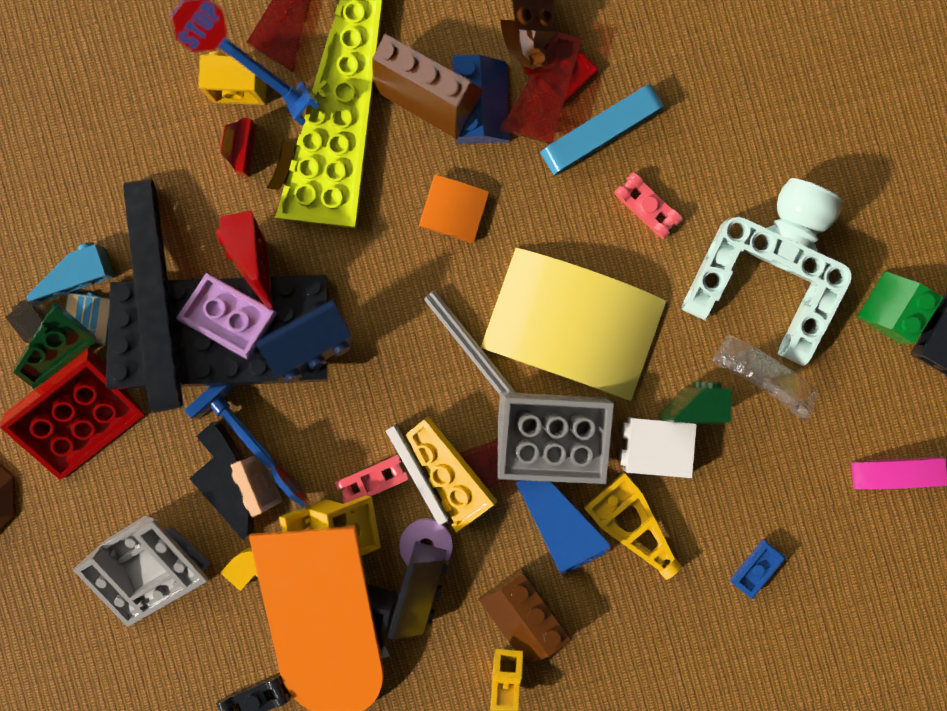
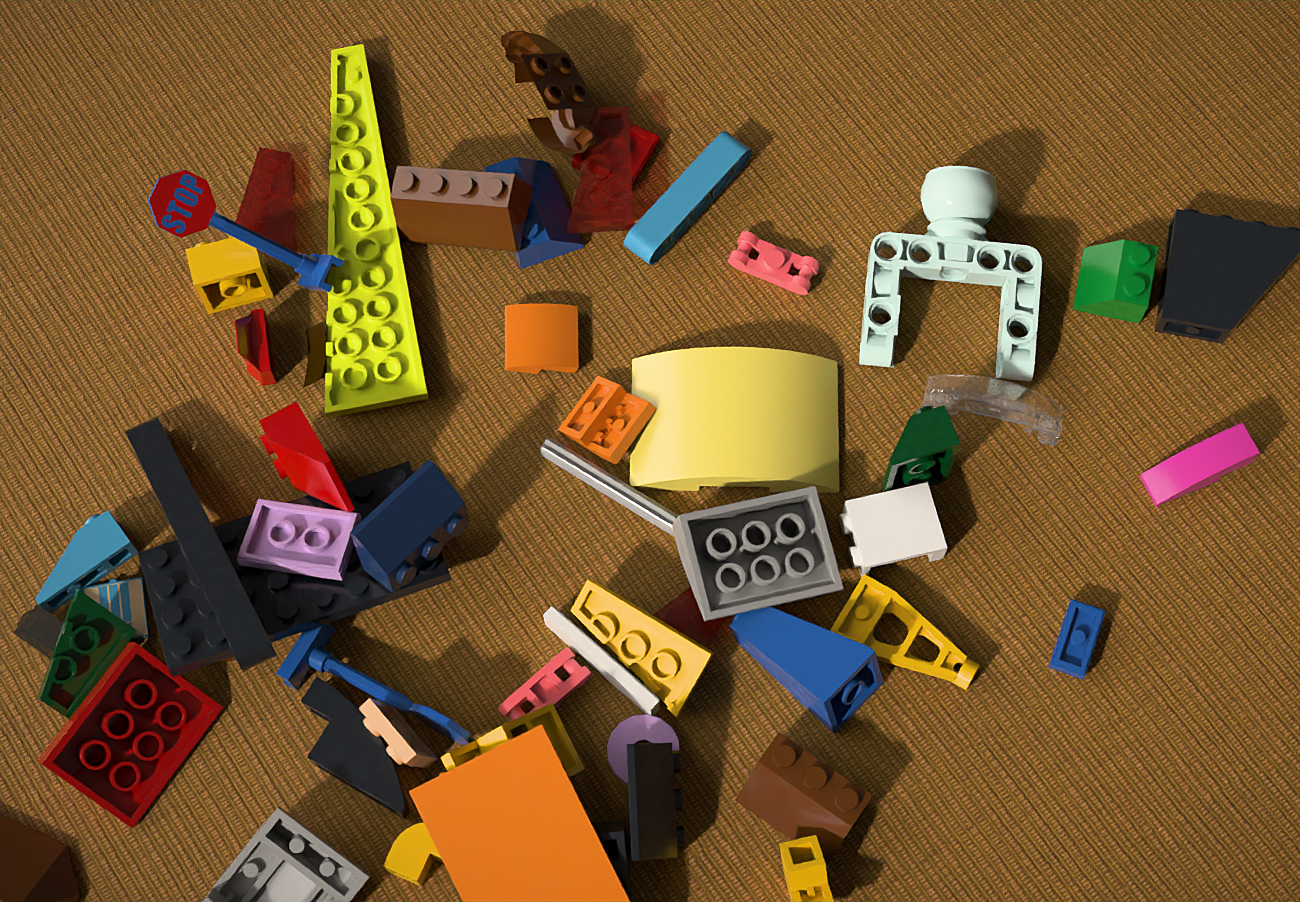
camera: 15 degrees left, 20 degrees down
(481, 291) = (607, 419): none -> orange slope

